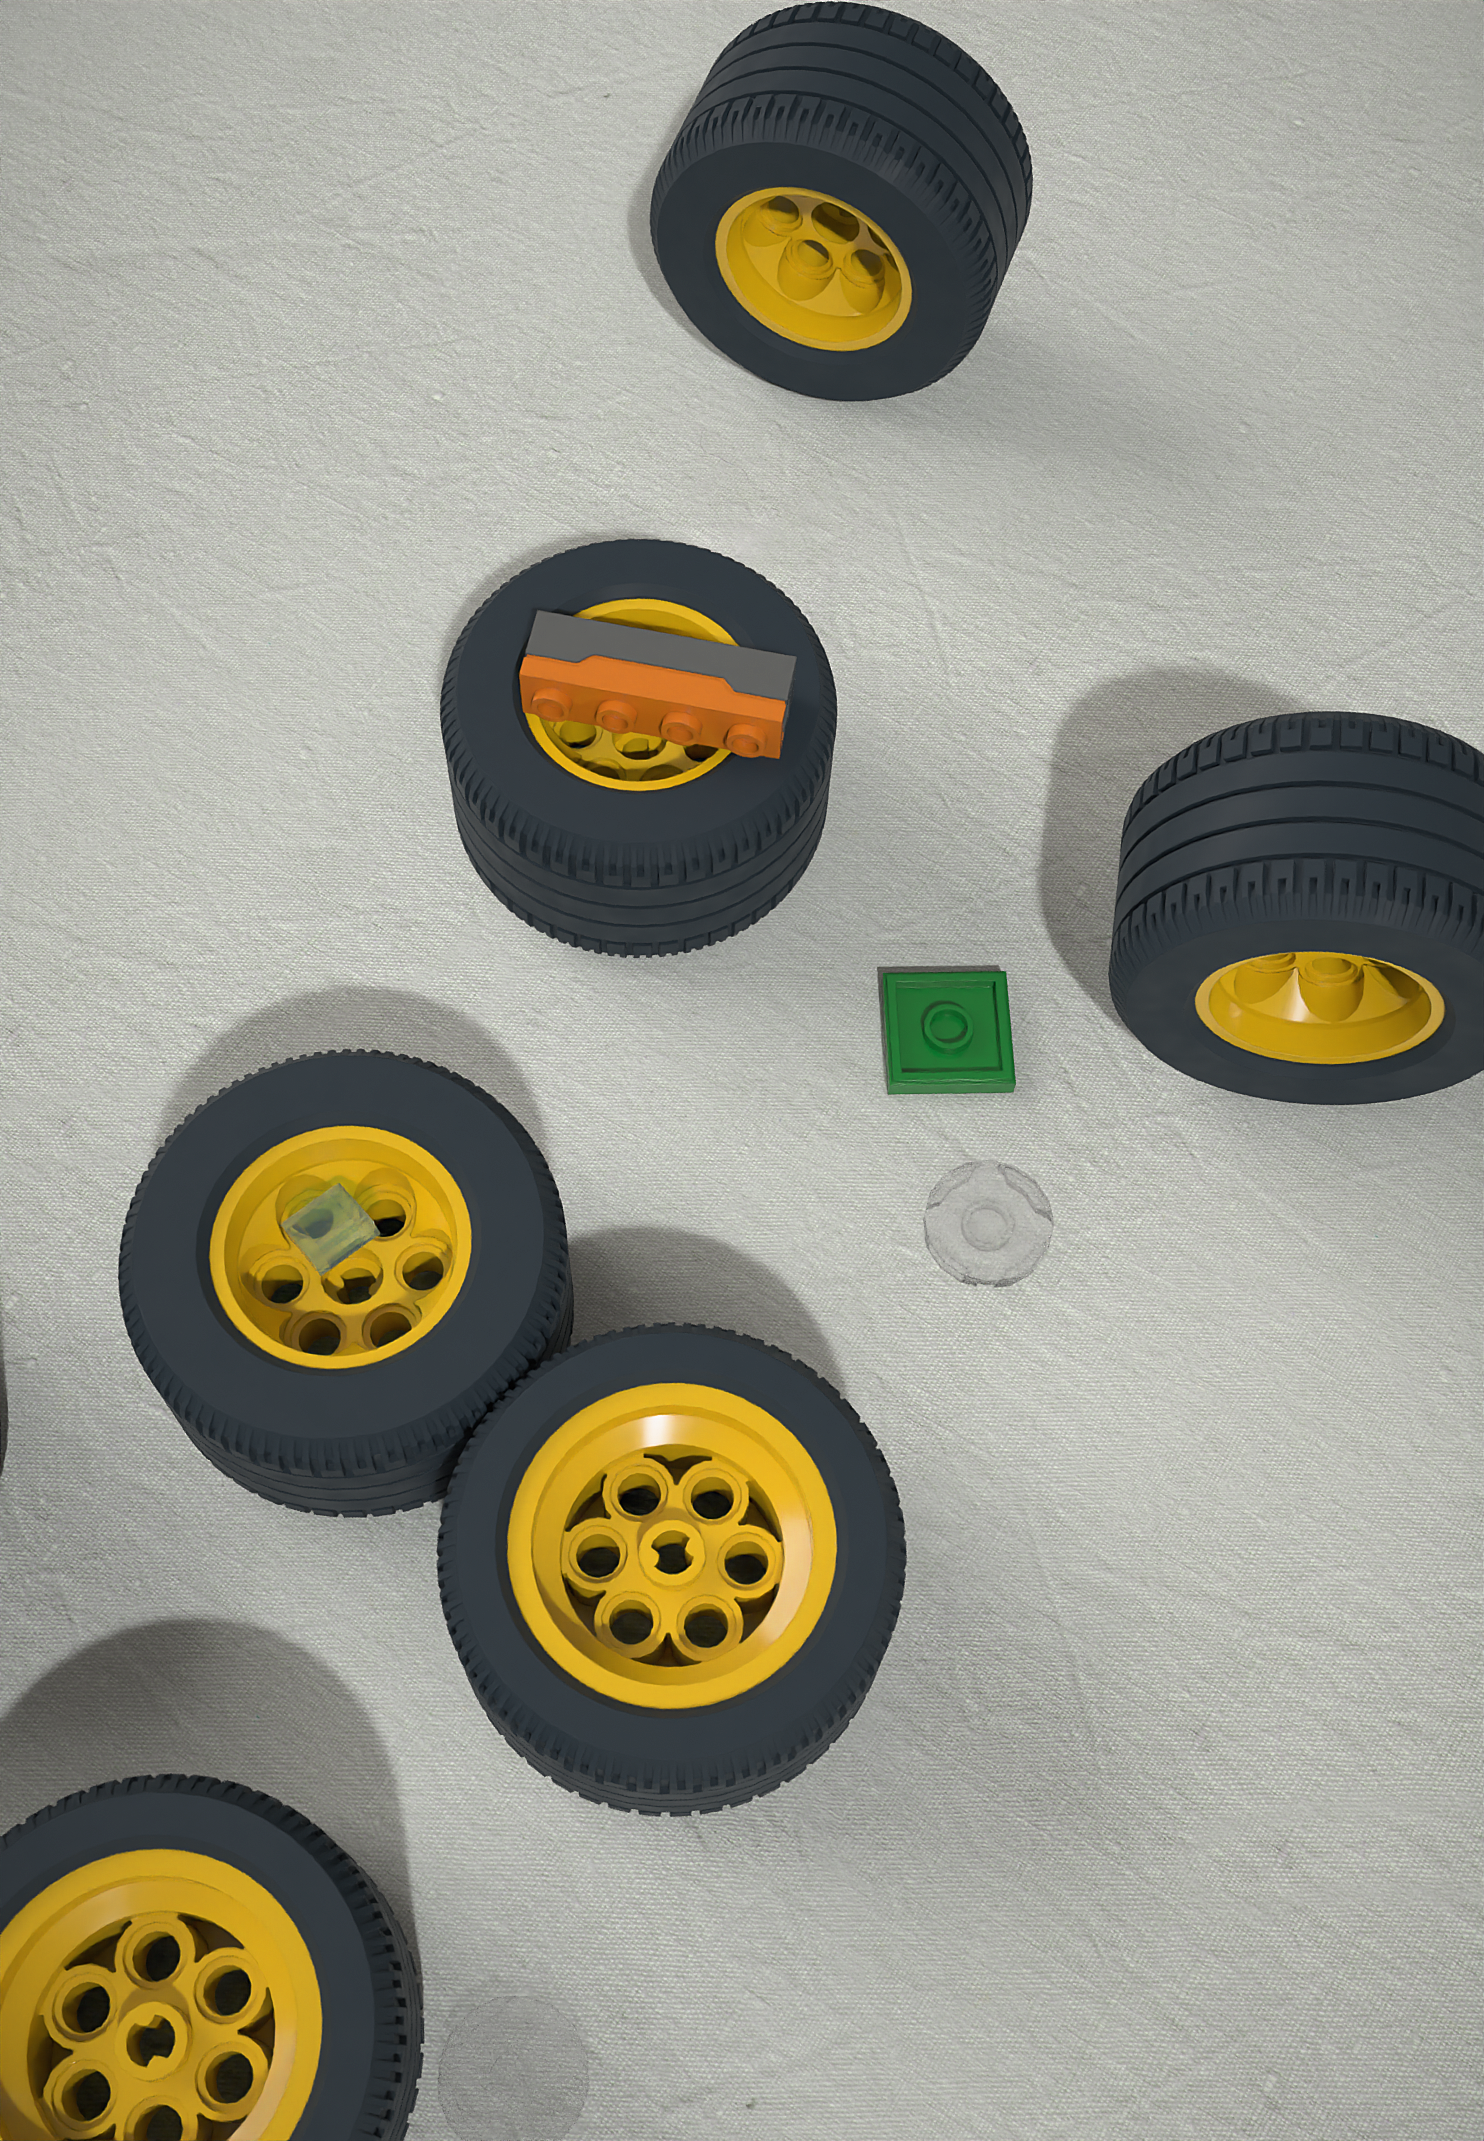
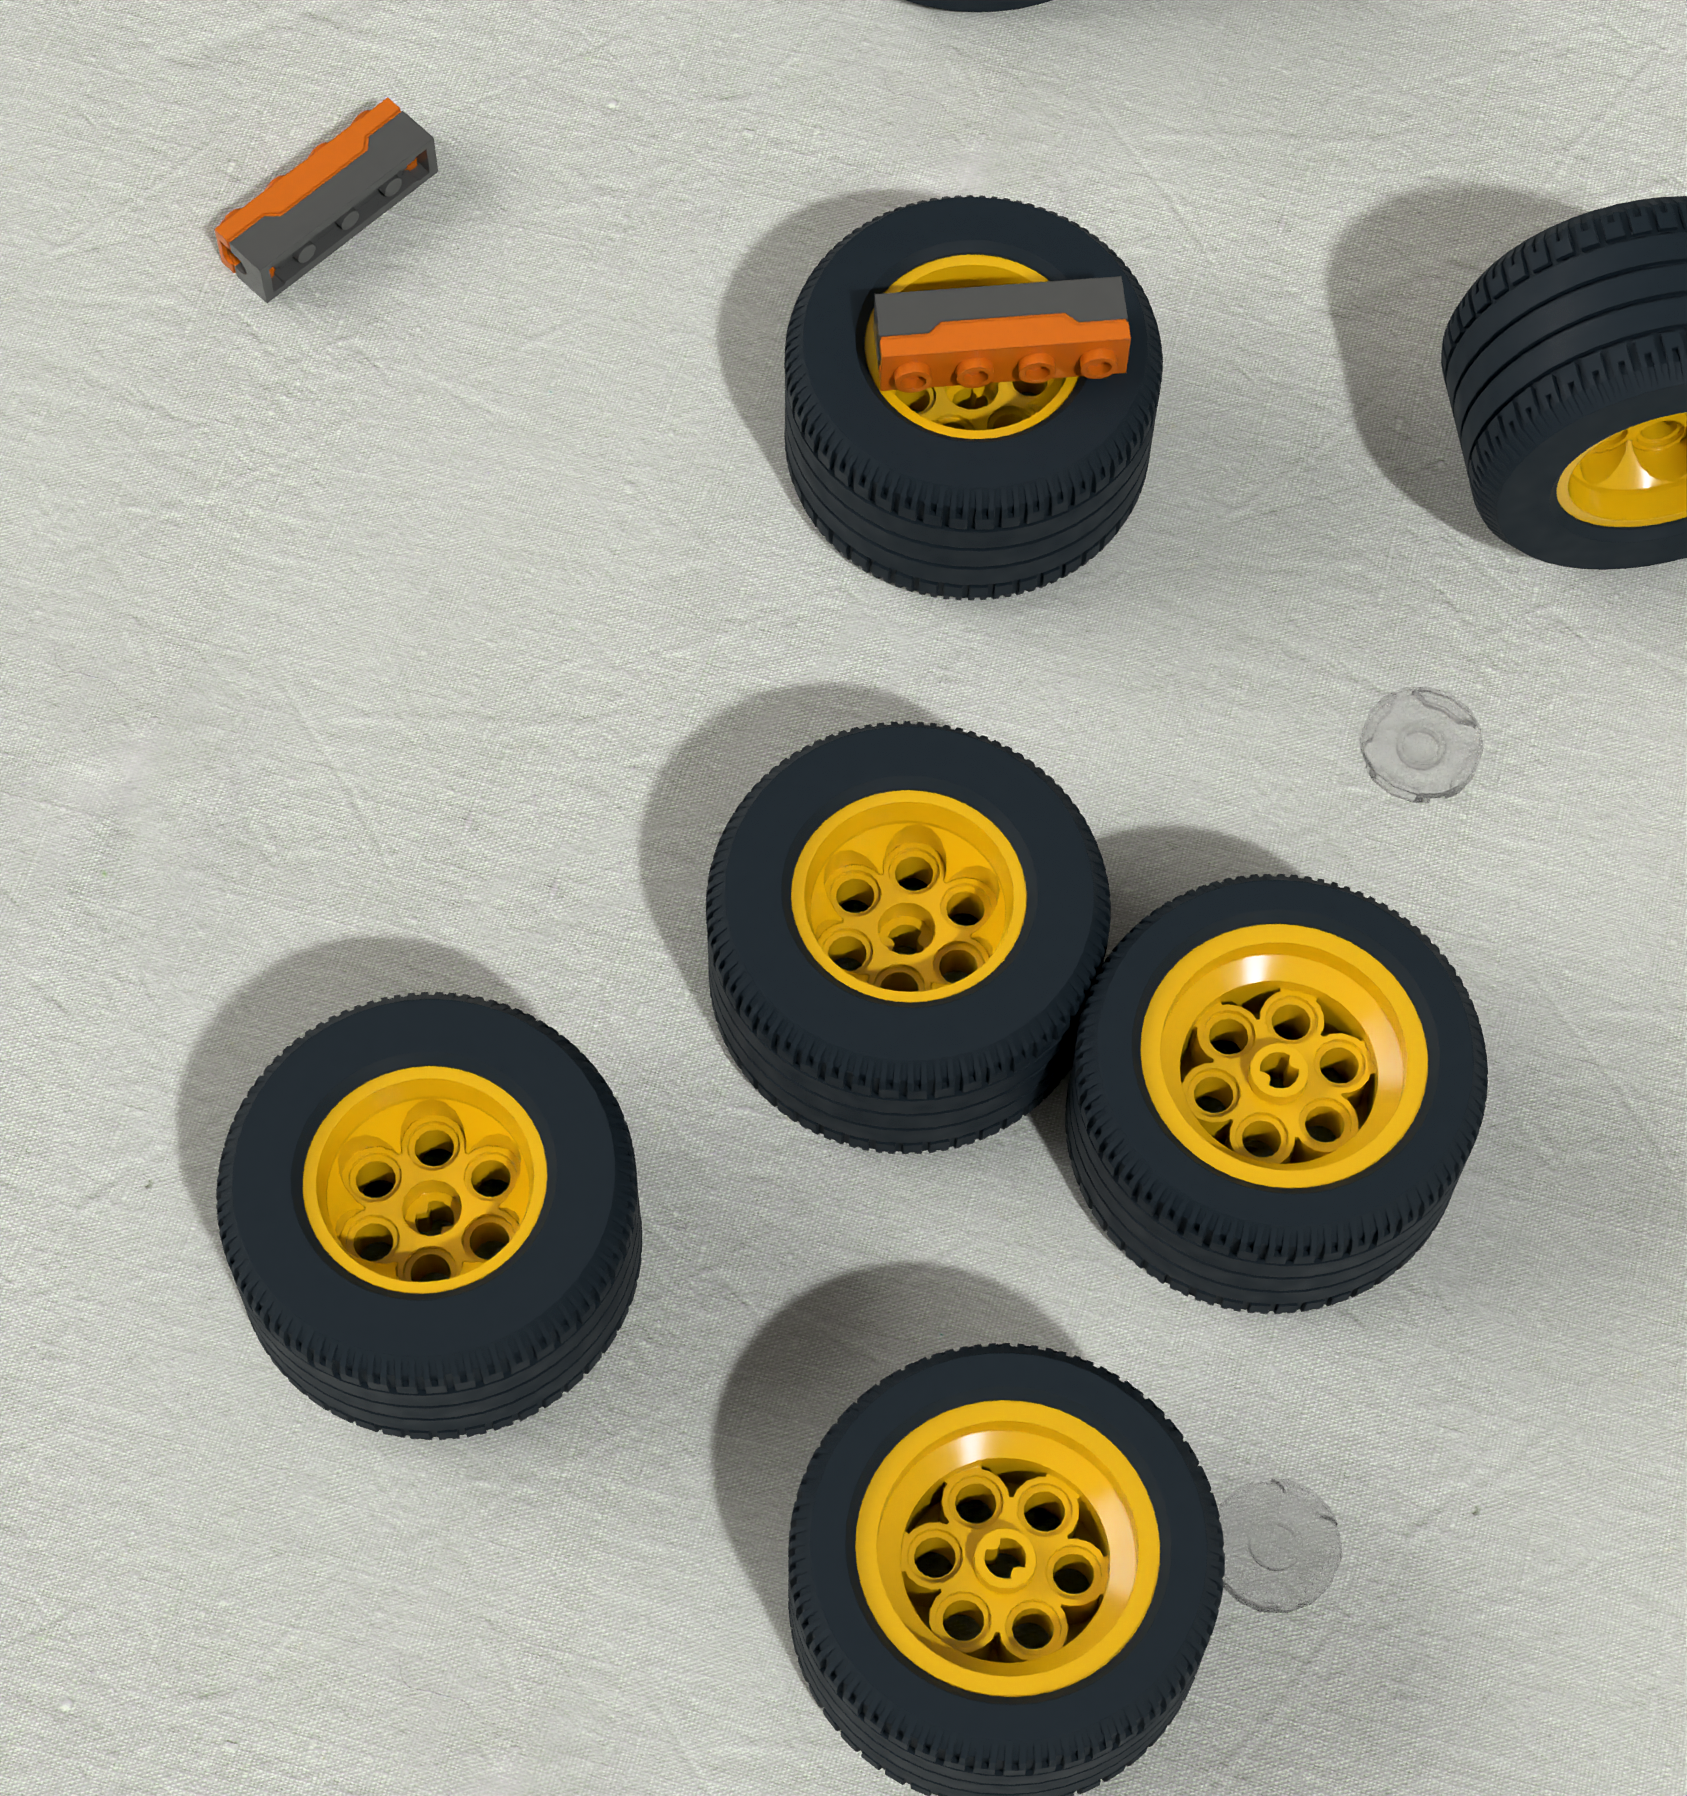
camera: 15 degrees left, 0 degrees up
(130, 413) = (326, 199): none -> dark grey piece
(330, 1228) = (886, 888): clear light blue tile -> none
(947, 1032) = (1325, 585): green tile -> none

